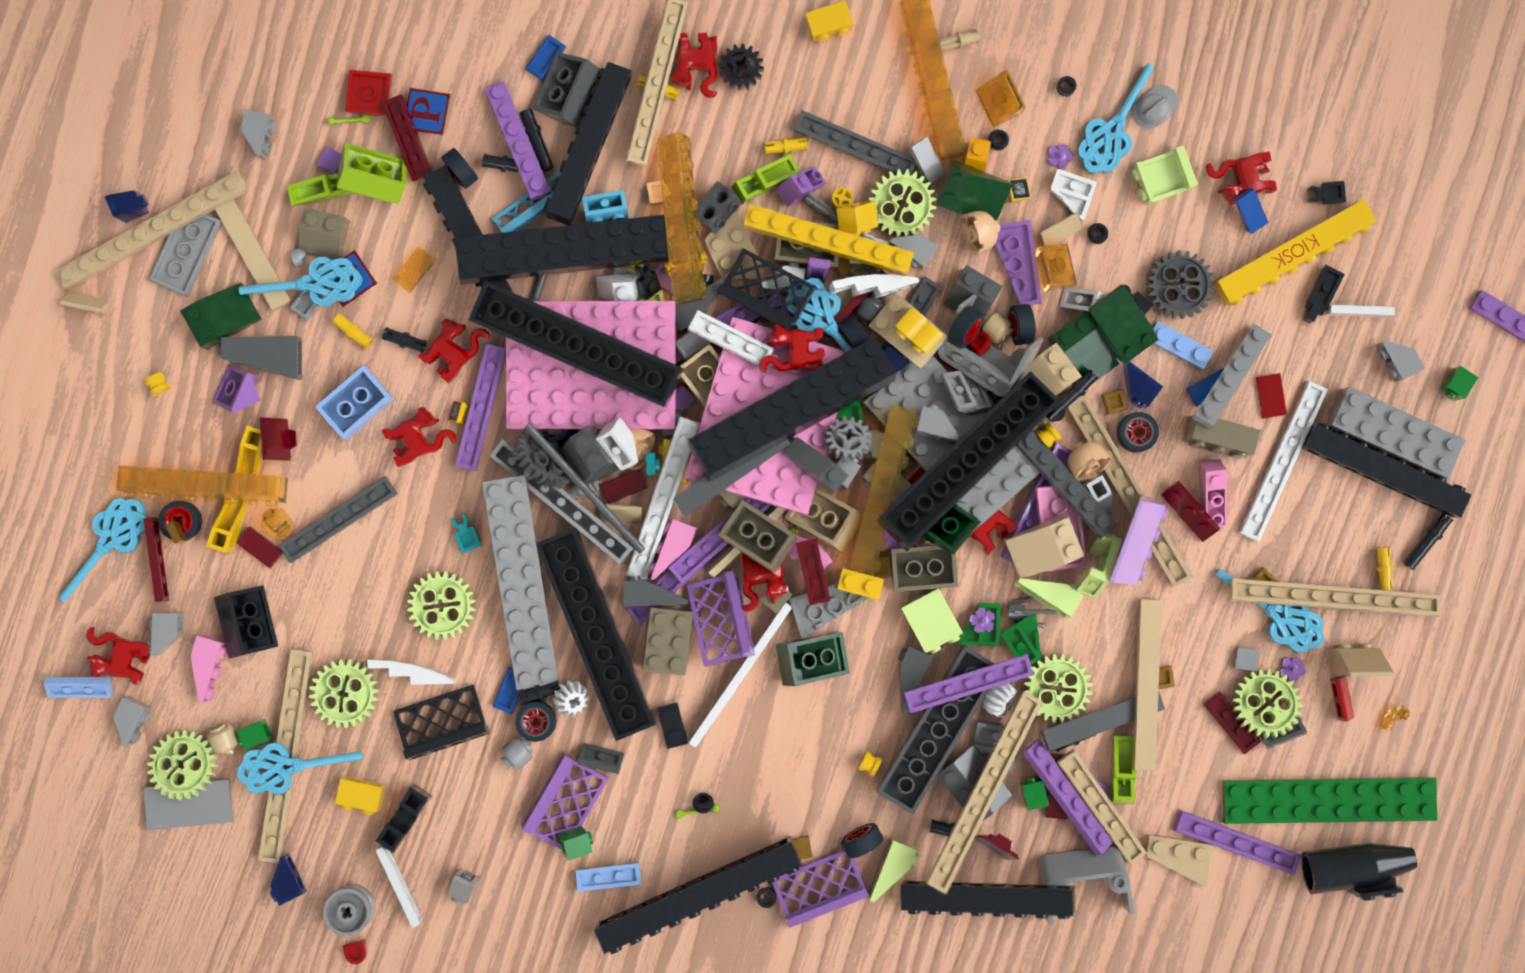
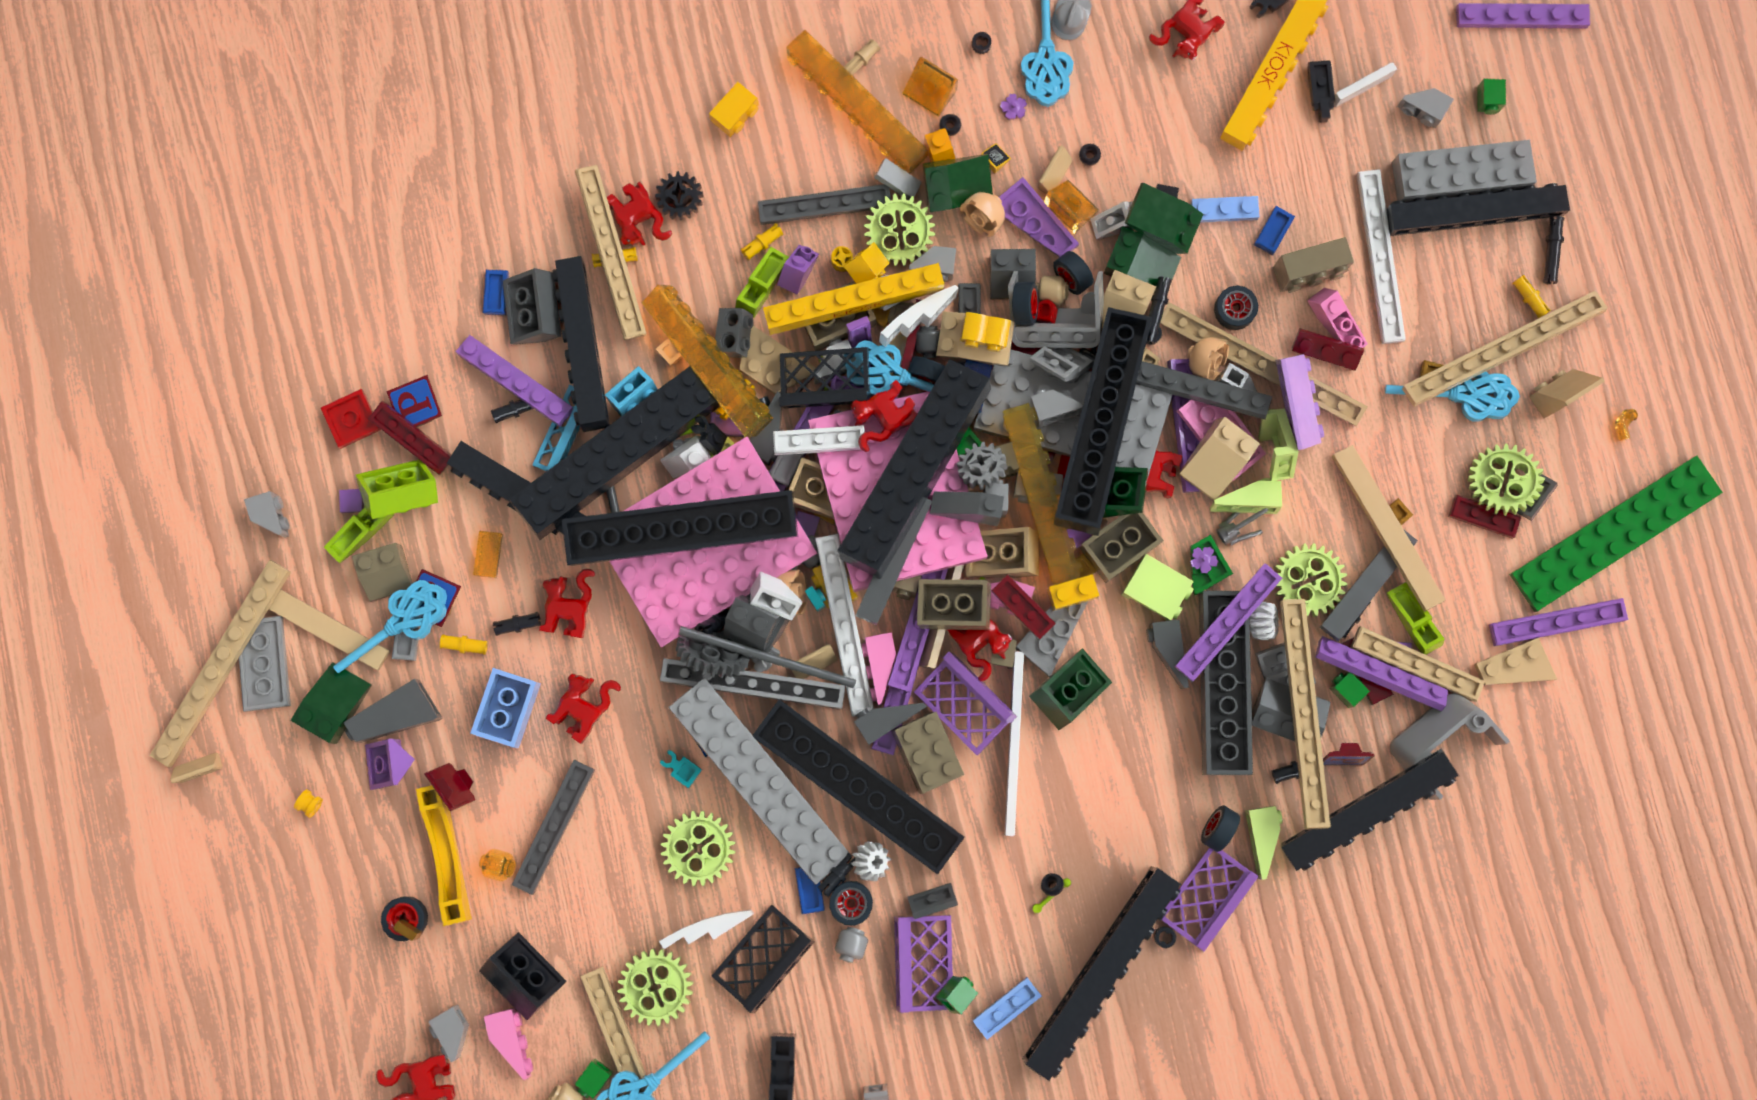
camera: 30 degrees left, 5 degrees down
(114, 530) = (346, 987): medium azure piece -> none
(127, 205) = (184, 653): clear blue slope -> none
(156, 559) = (403, 969): dark red tile -> none
(202, 484) = (406, 870): clear yellow brick -> none
(260, 547) = (494, 898): dark red tile -> none
(298, 257) = (373, 606): light grey hinge -> none
(360, 795) = (727, 1074): yellow brick -> none
(366, 119) = (361, 444): lime hinge -> none
(458, 412) = (606, 660): slope -> none
(459, 168) = (476, 435): black wheel -> none
(481, 407) = (625, 643): medium lavender plate -> none
(533, 130) = (524, 364): black pin -> none
(623, 486) = (800, 636): dark red tile -> none
(672, 725) = (980, 830): black plate -> none
(803, 847) = (1170, 868): pearl gold tile -> none
(821, 207) = (829, 277): light grey axle -> none
(870, 763) = (1183, 753): yellow wheel -> none
(1024, 638) = (1250, 552): green wing -> none
(1048, 435) = (1159, 356): yellow wheel -> none
(1073, 191) = (1045, 130): white wing -> none
(1114, 401) = (1198, 293): pearl gold tile -> none
(1140, 386) = (1212, 265): clear blue slope -> none
(1164, 176) = (1117, 69): yellowish green panel -> none
(1178, 265) = (1203, 170): dark grey gear -> none
(1232, 376) = (1289, 207): light grey plate -> none
(1246, 659) = (1460, 451): light grey tile -> none
(1251, 210) = (1213, 53): blue tile -> none
(1271, 395) = (1334, 205): red slope -> none
(1292, 668) = (1506, 435): medium lavender plant -> none
(1342, 698) = (1568, 435): red slope -> none
(1360, 868) = (1681, 578): black piece -> none

